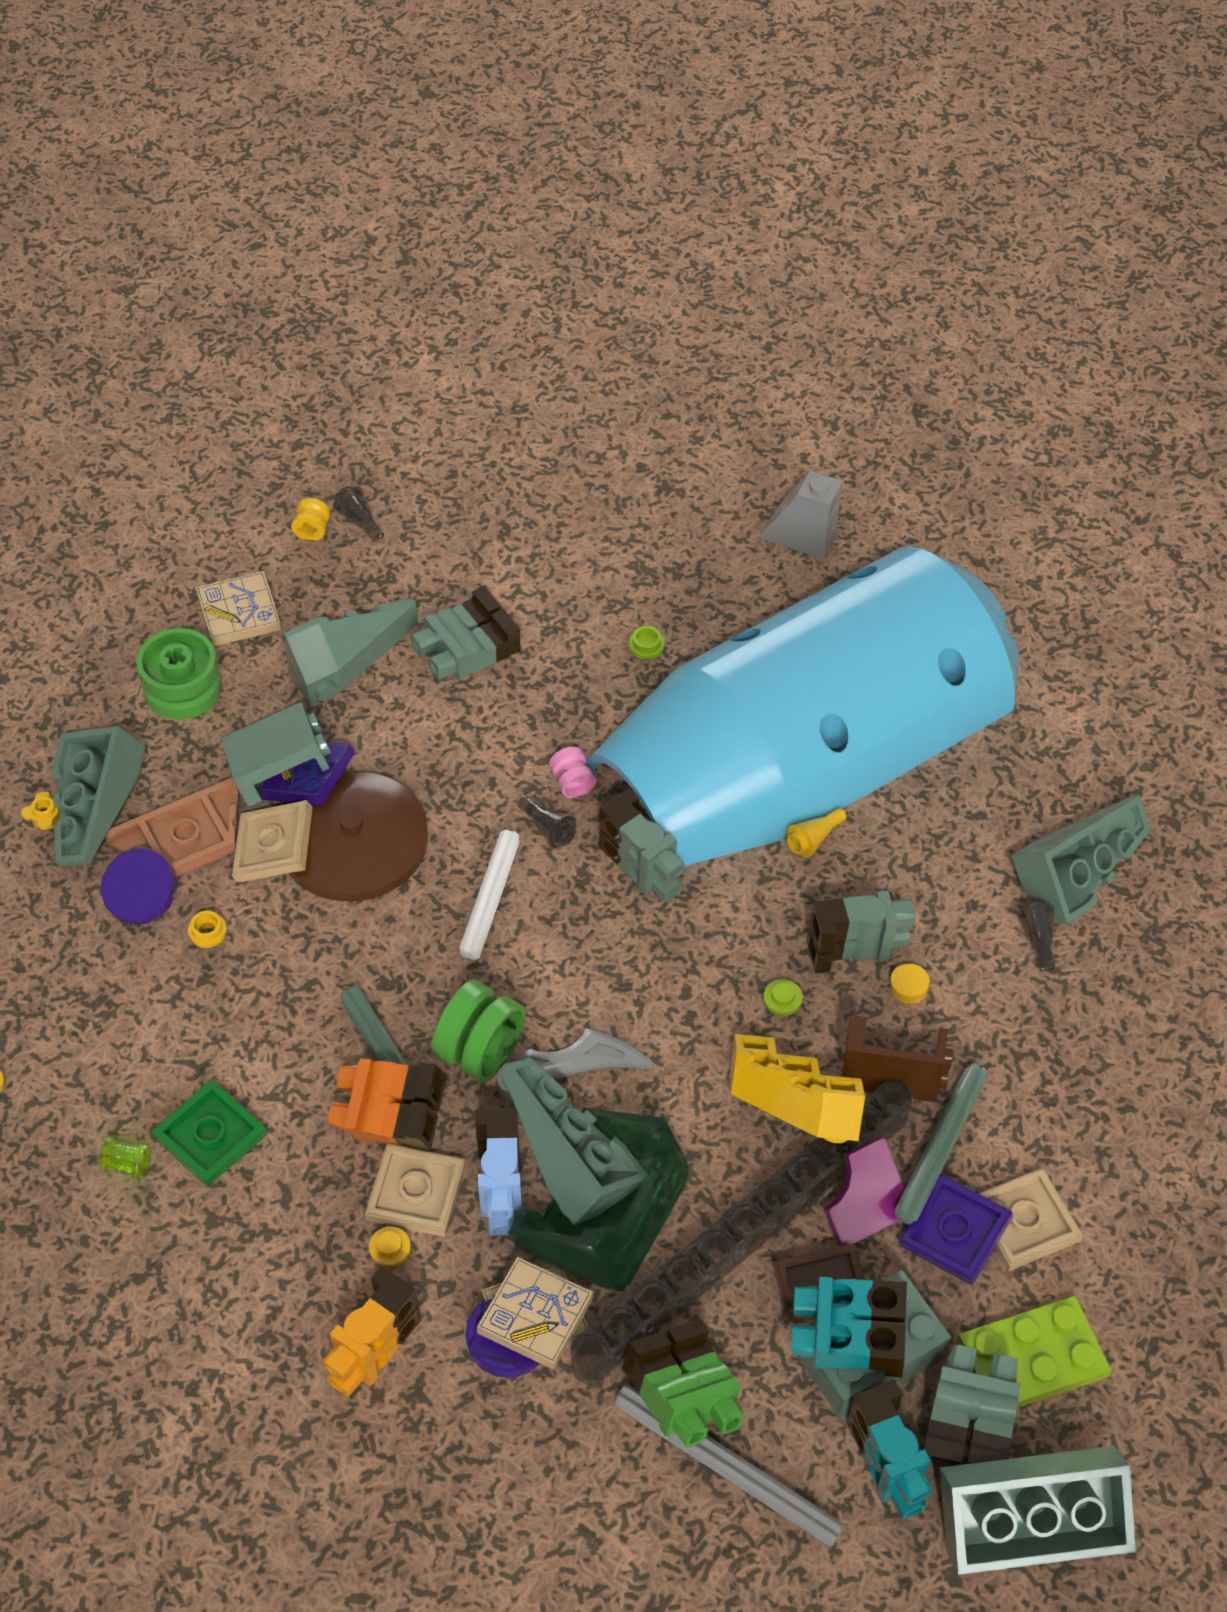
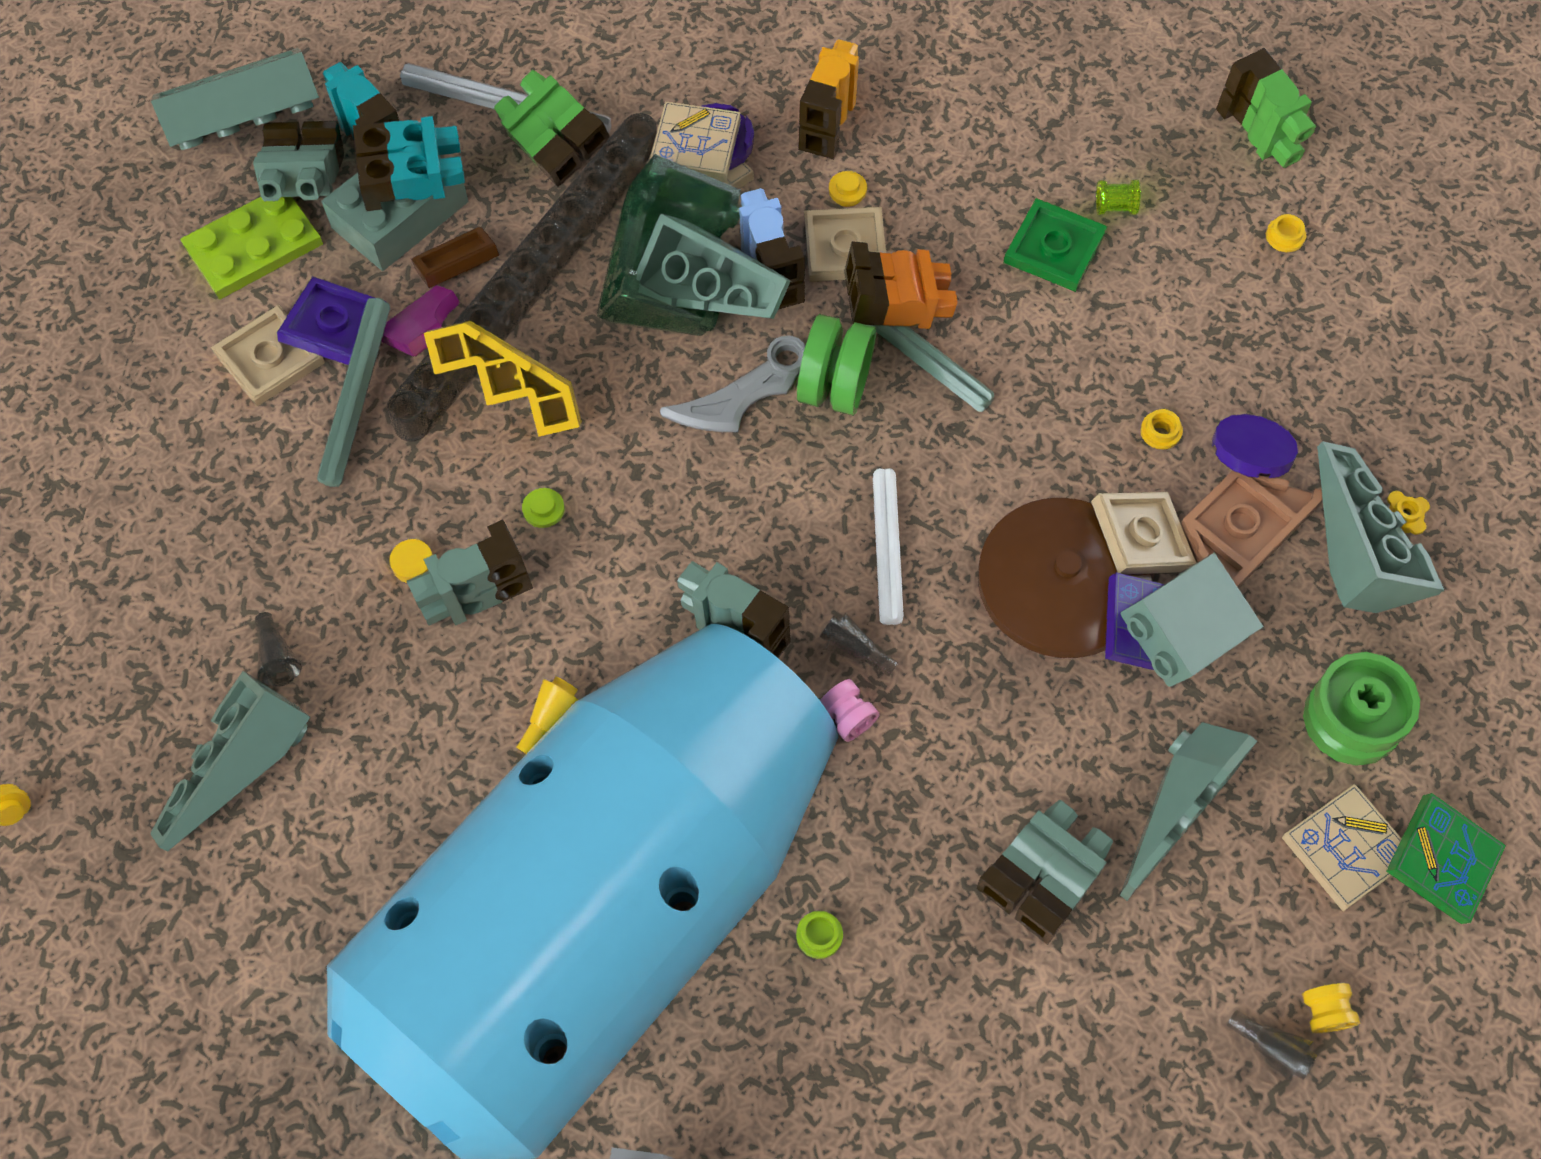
camera: 165 degrees right, 10 degrees up
(176, 579) = (1446, 858): none -> green tile
(877, 1065) = (407, 430): reddish brown panel -> none

